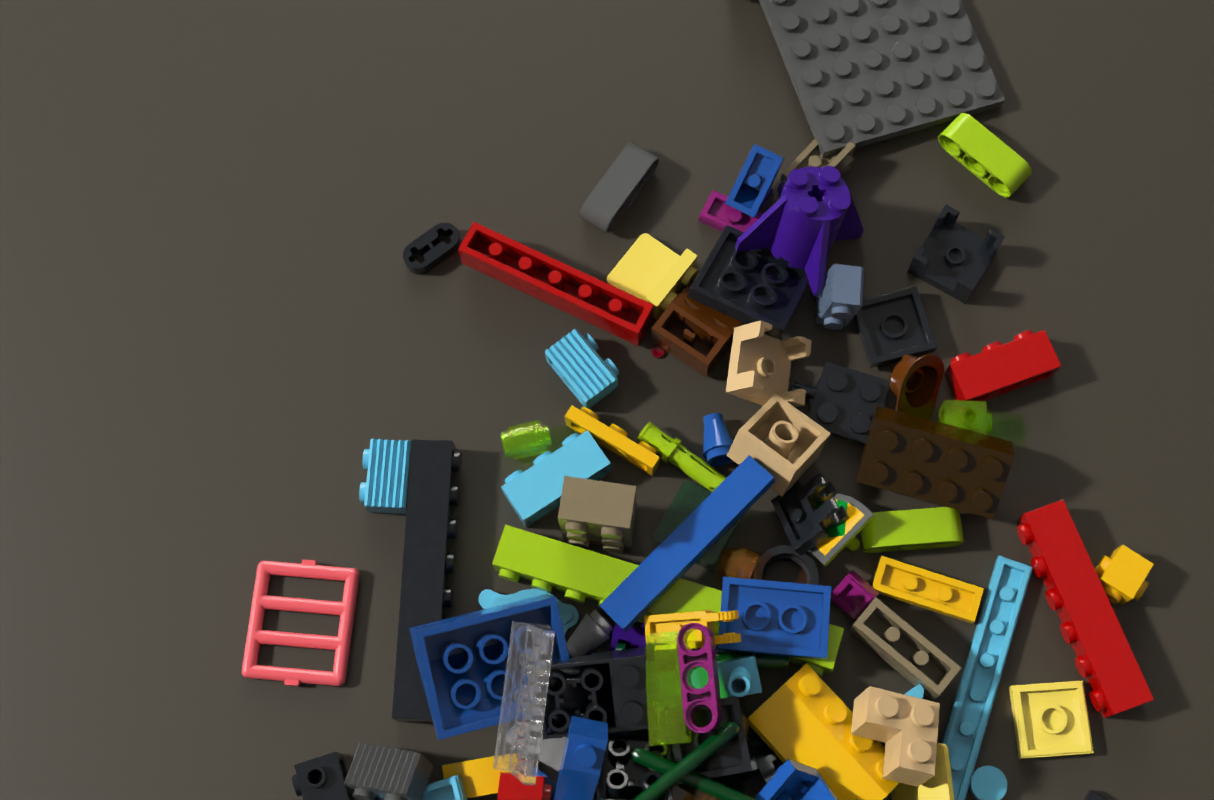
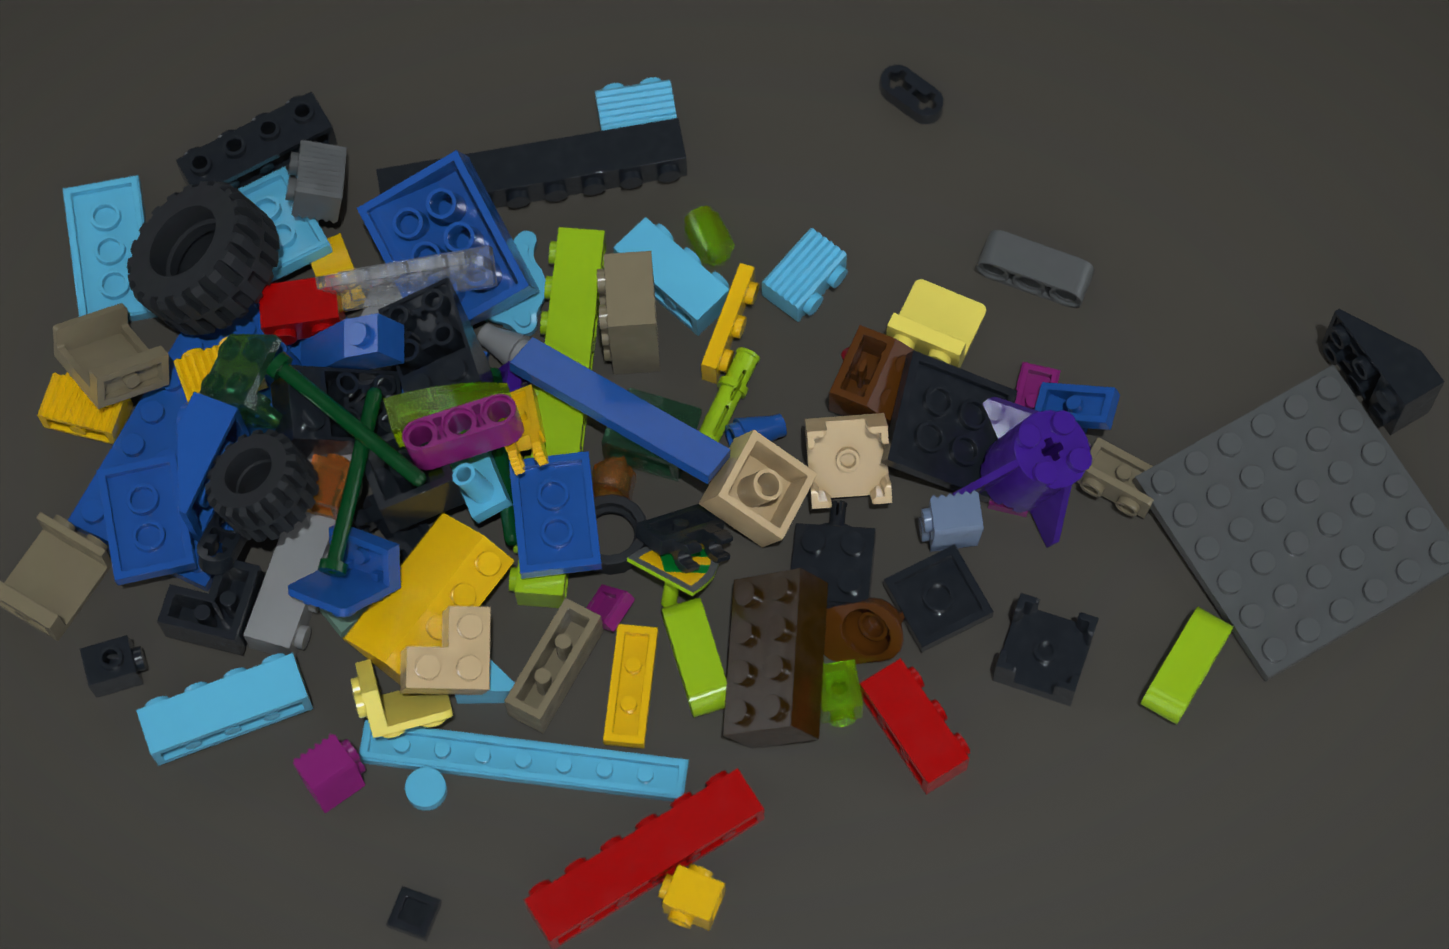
camera: 75 degrees right, 5 degrees down
(340, 643) = (450, 111): coral bar -> none
(556, 283) = (895, 221): red brick -> none
(1051, 719) = (511, 847): light yellow tile -> none

